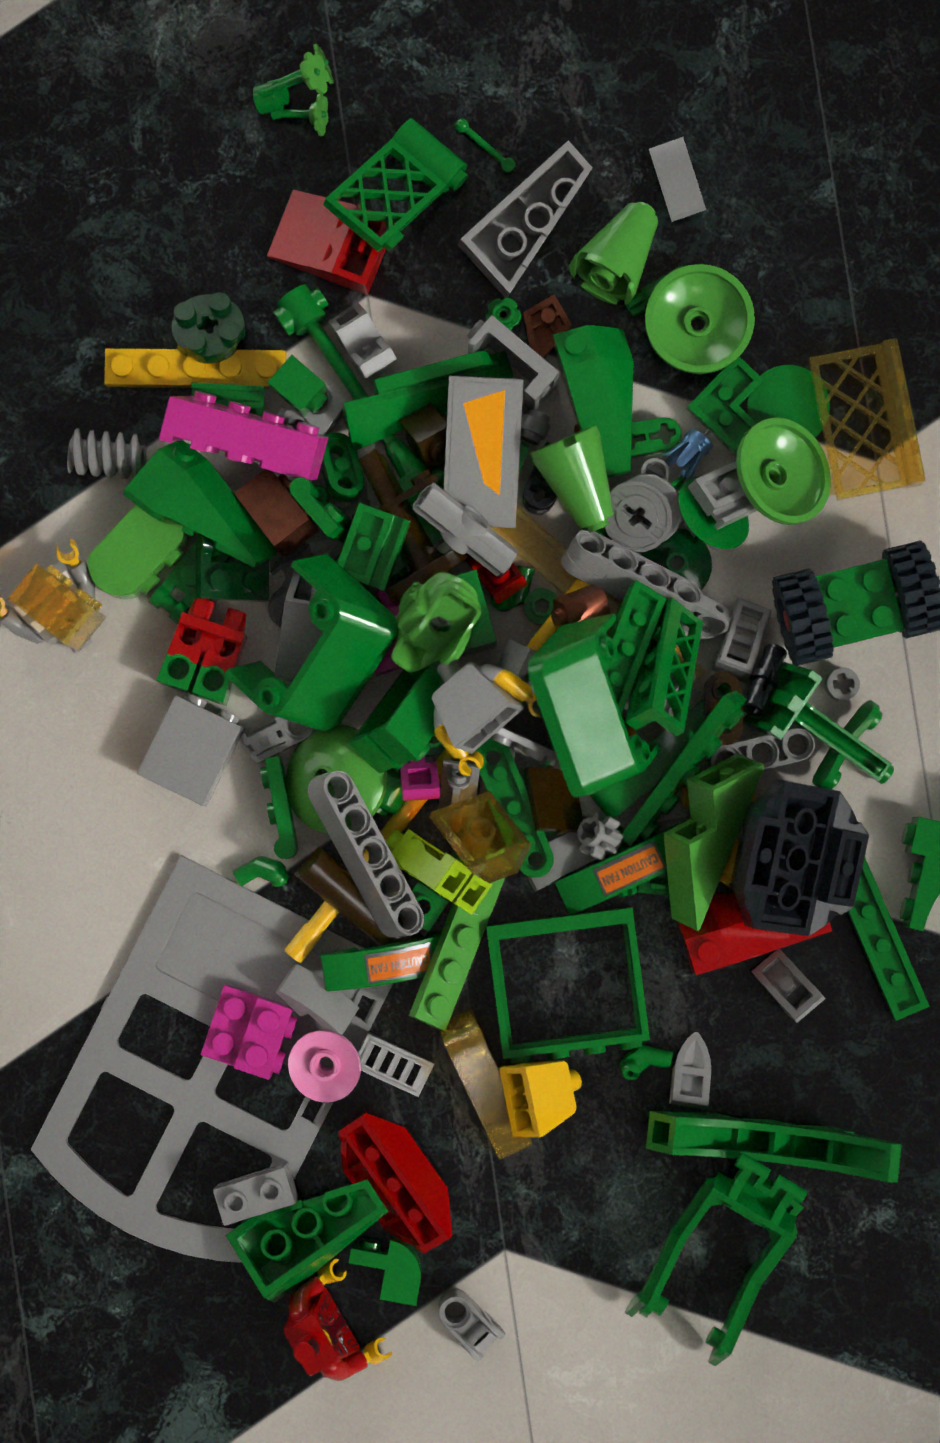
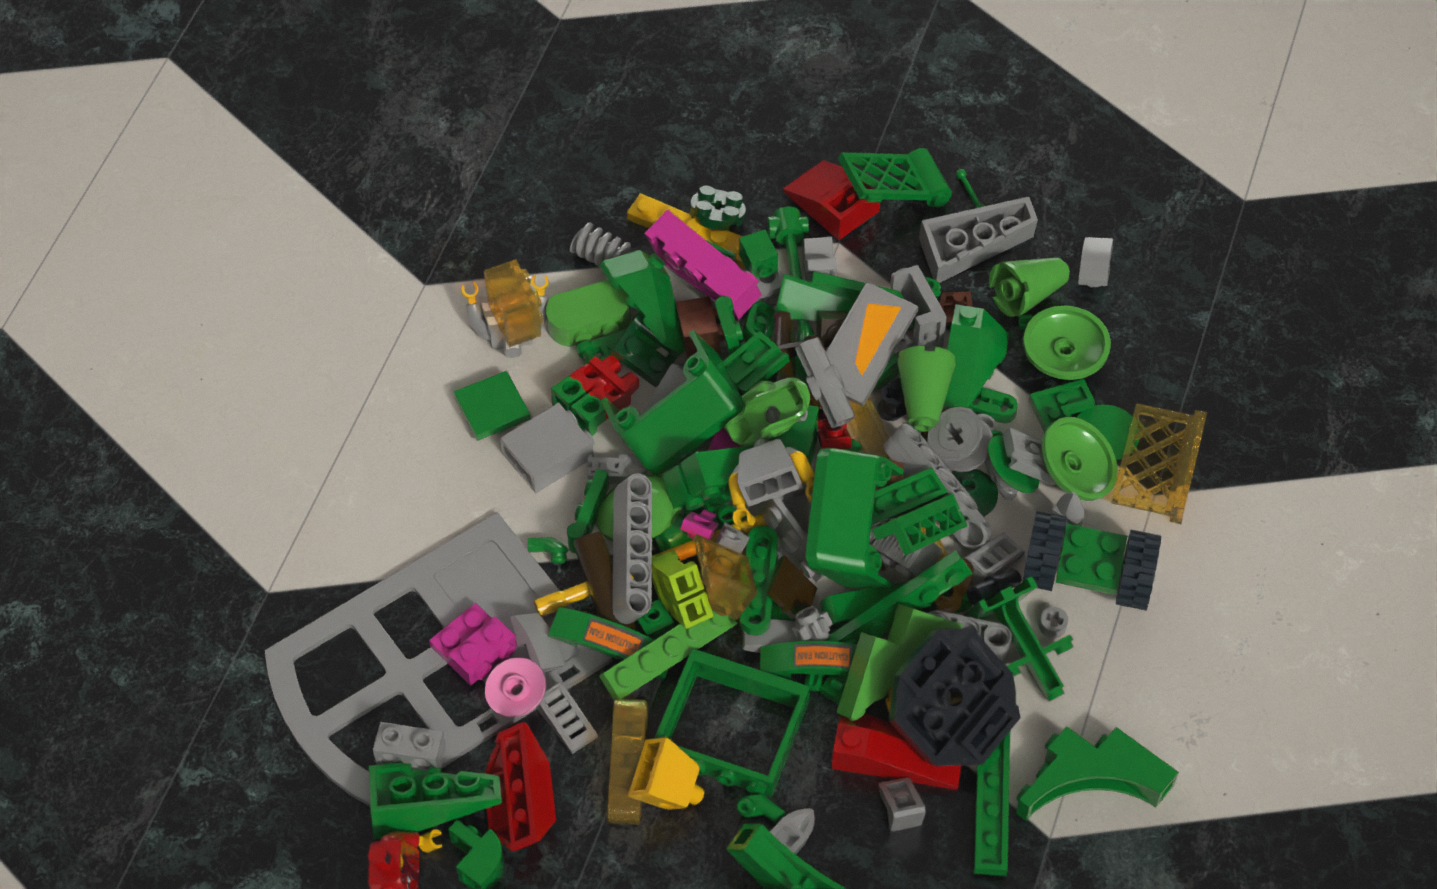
camera: 20 degrees right, 30 degrees down
(98, 726) = (492, 405): none -> green tile
(274, 95) = (840, 103): plant -> none
(689, 452) = (1021, 419): flat silver piece -> none
(801, 552) = (1071, 507): none -> light grey plate

